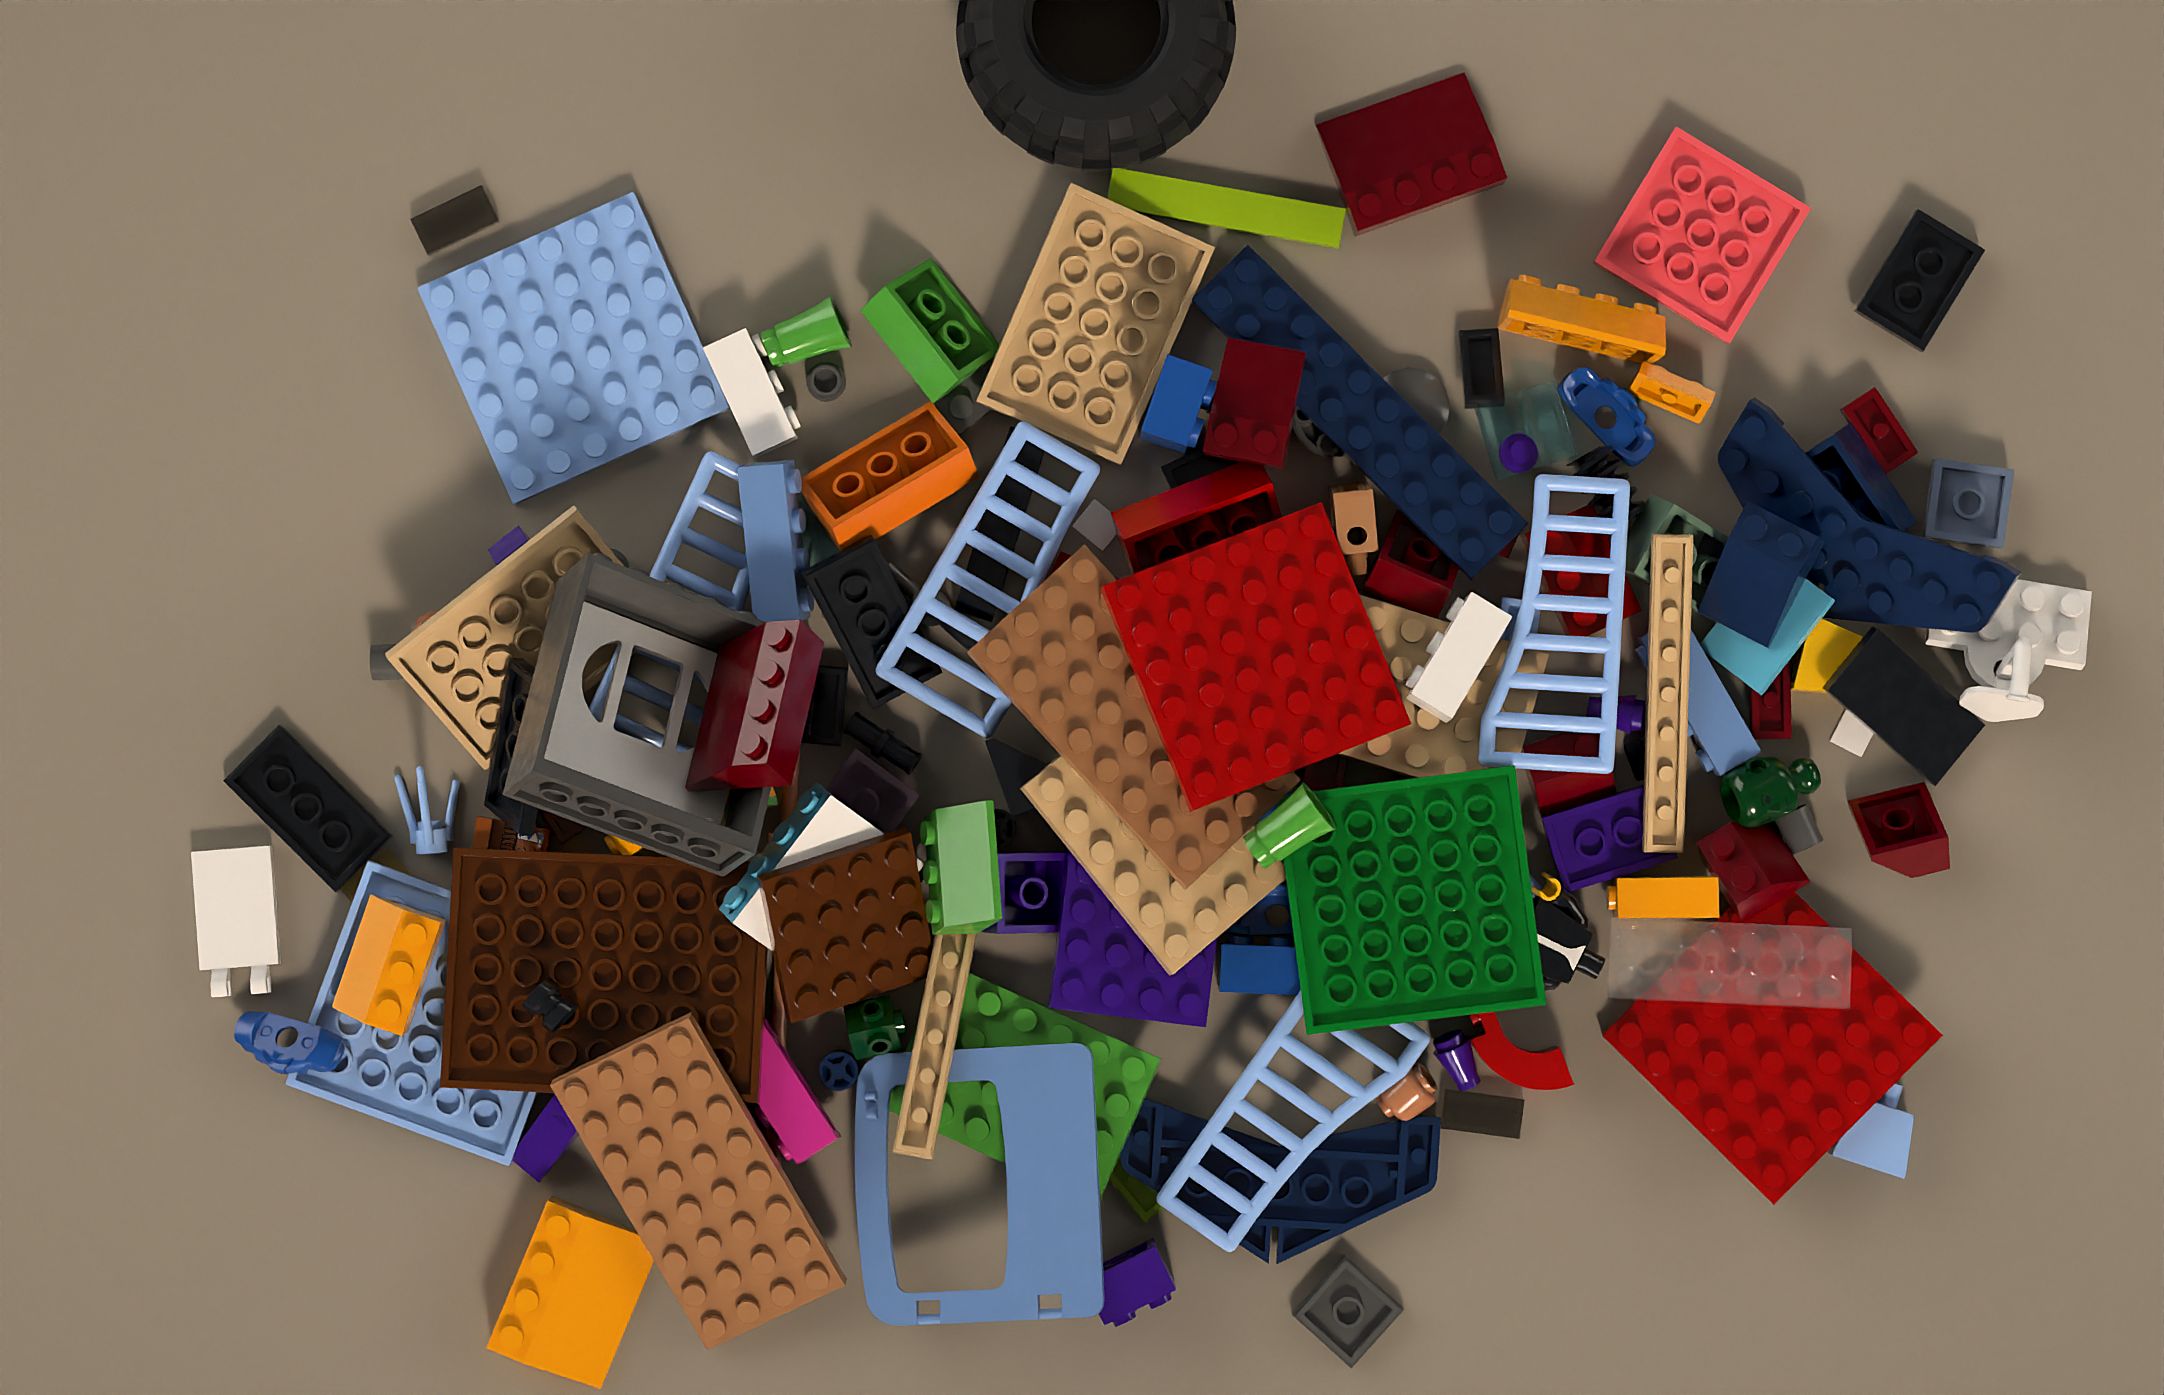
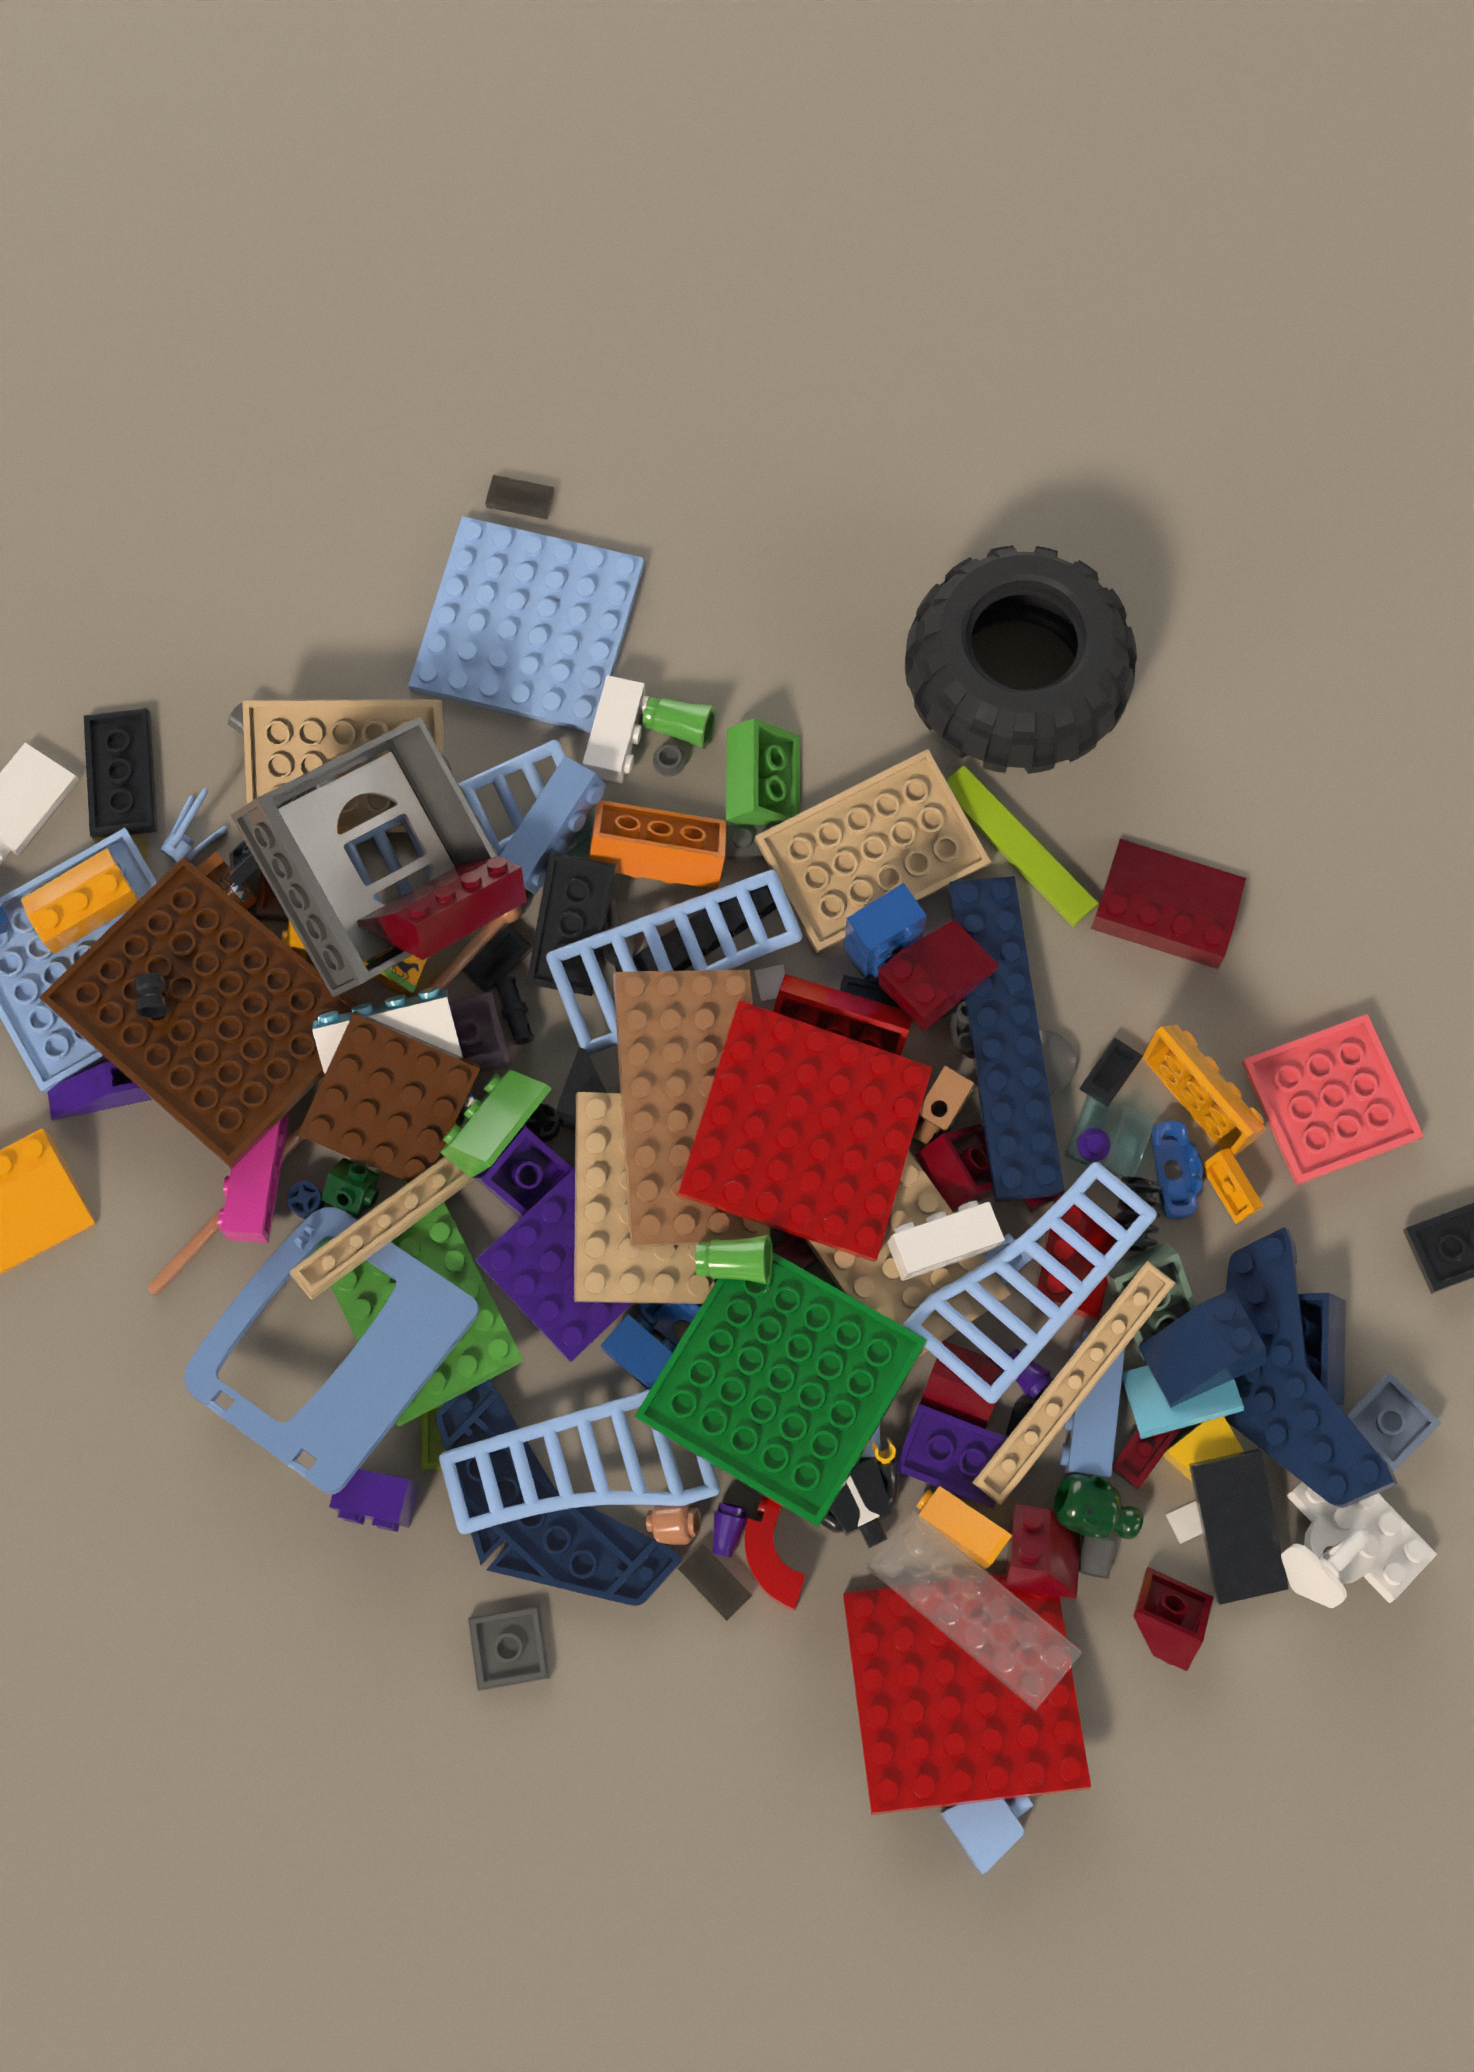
camera: 40 degrees right, 15 degrees down
(698, 1181) = (147, 1193): medium nougat plate -> none
(1879, 430) = (1362, 1323): dark red plate -> none

